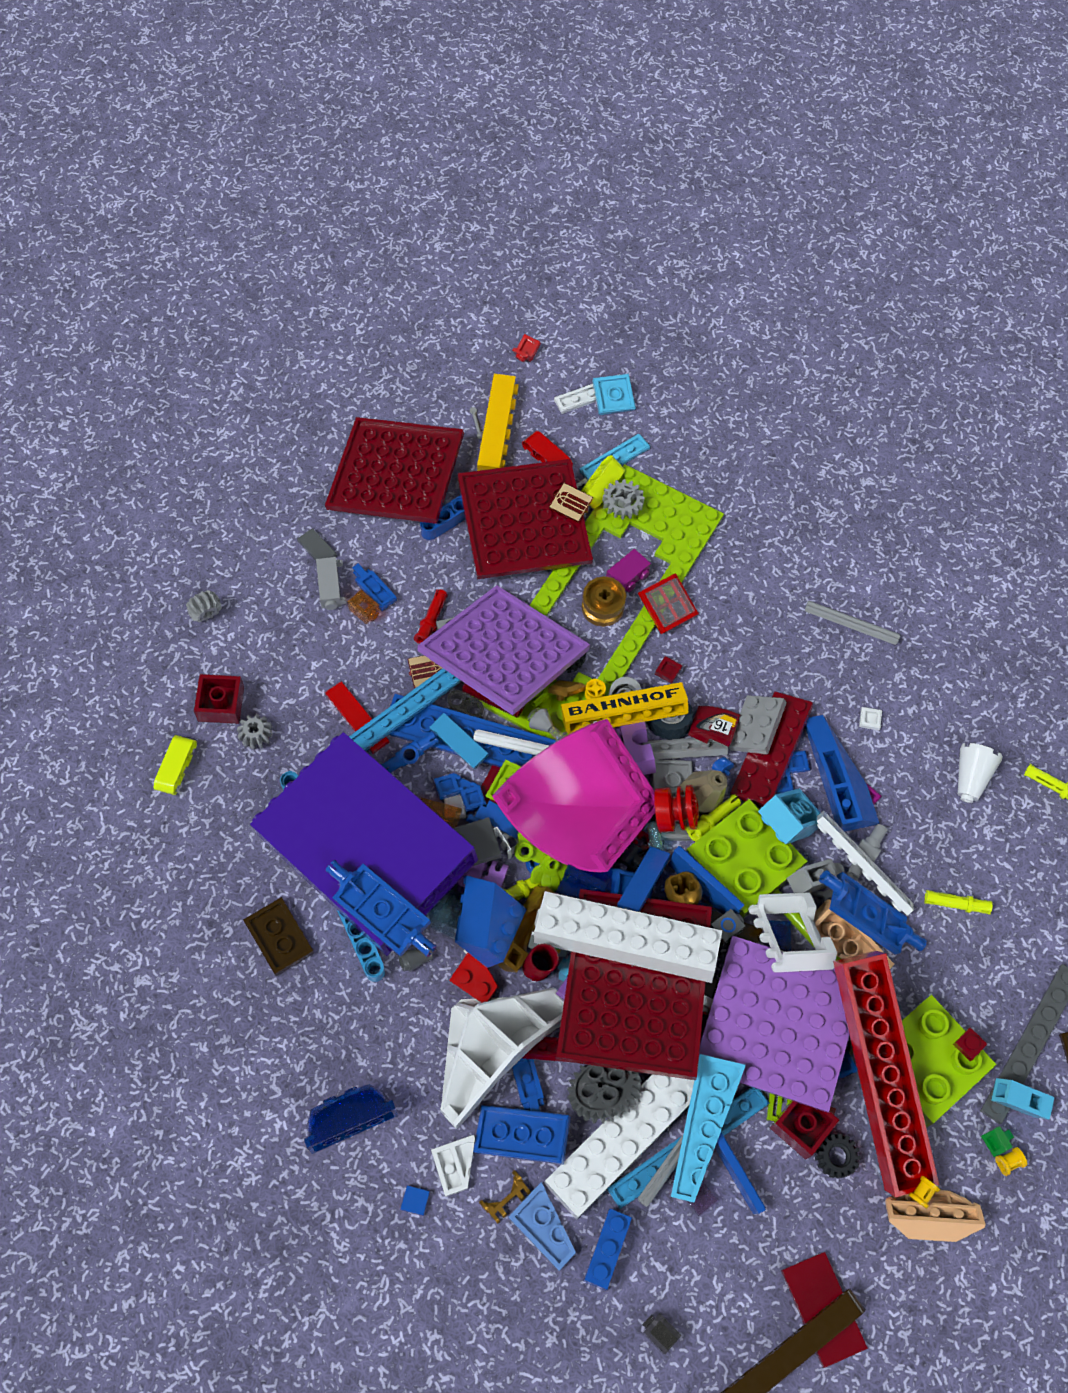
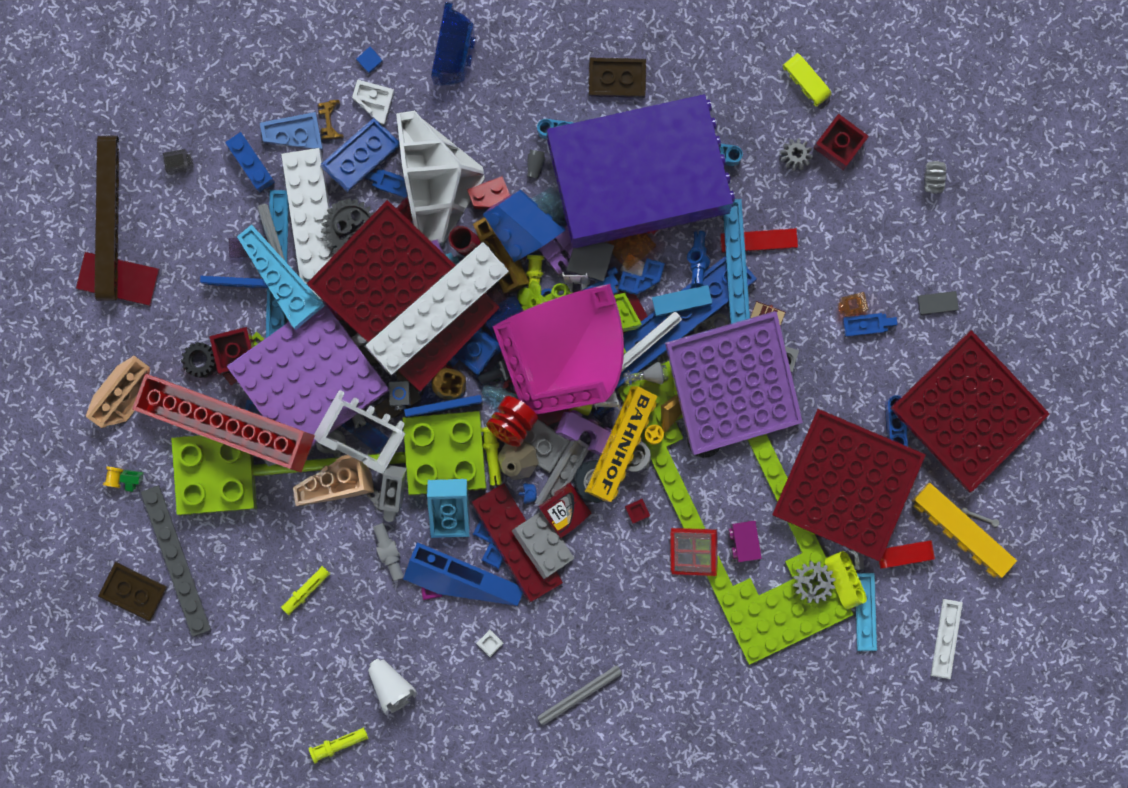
camera: 130 degrees right, 20 degrees up
(329, 583) = (894, 290): light grey brick -> none
(381, 909) = (570, 143): blue plate -> none
(428, 624) = (804, 346): red pin -> none
(527, 348) = (1030, 612): red bracket -> none
(571, 503) = (836, 532): piece -> none
(603, 601) = (730, 488): pearl gold wheel -> none
(613, 394) = (930, 656): medium azure tile -> none
(644, 880) = (474, 357): blue tile -> none
(870, 869) = (378, 536): white plate -> none
(870, 913) = (339, 509): blue plate -> none
(924, 1192) = (133, 392): yellow bush -> none
(970, 1044) = (200, 501): dark red plate -> none
(1022, 1098) = (143, 515): medium azure brick -> none

